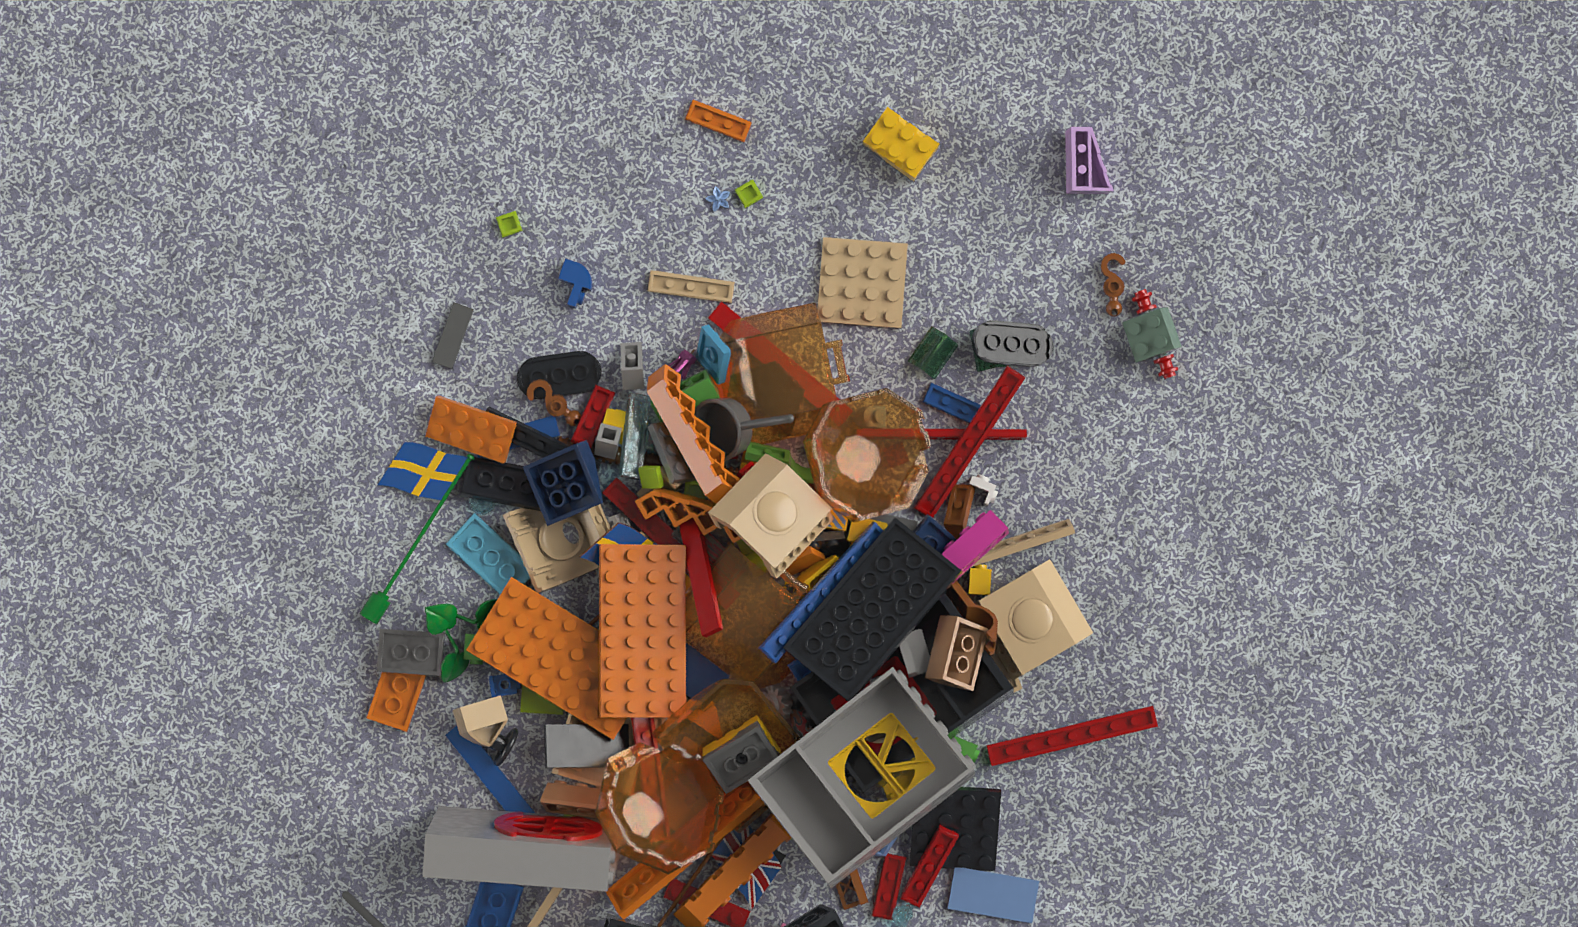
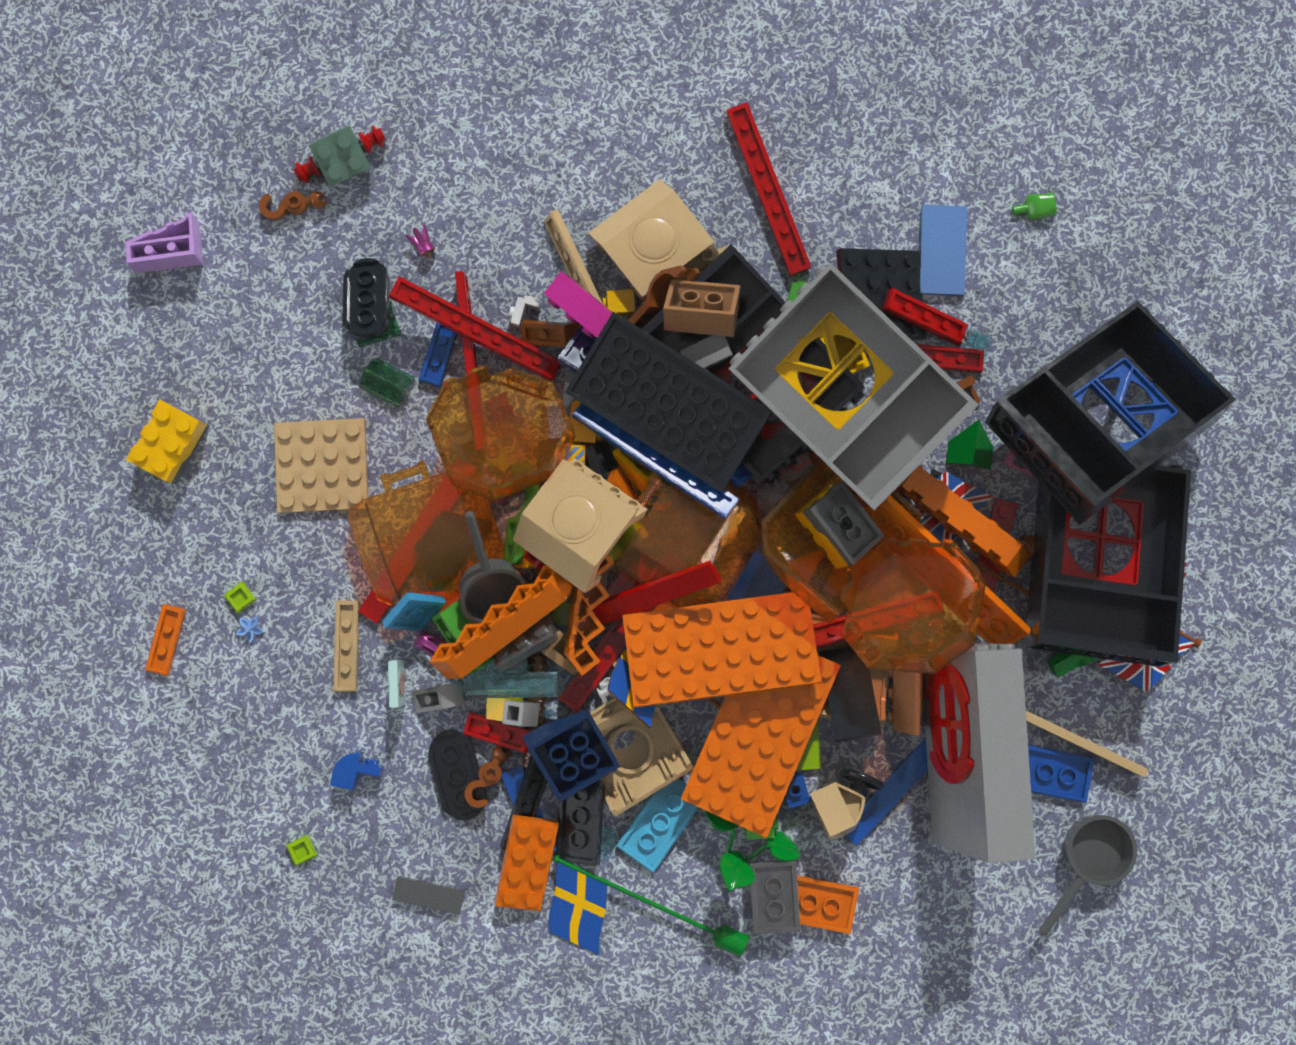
camera: 100 degrees left, 0 degrees up
(650, 330) = (396, 681): none -> light aqua tile
(650, 477) = (554, 661): lime tile -> none
(800, 894) = (971, 448): none -> green slope
(1061, 401) = (422, 242): none -> flat silver piece

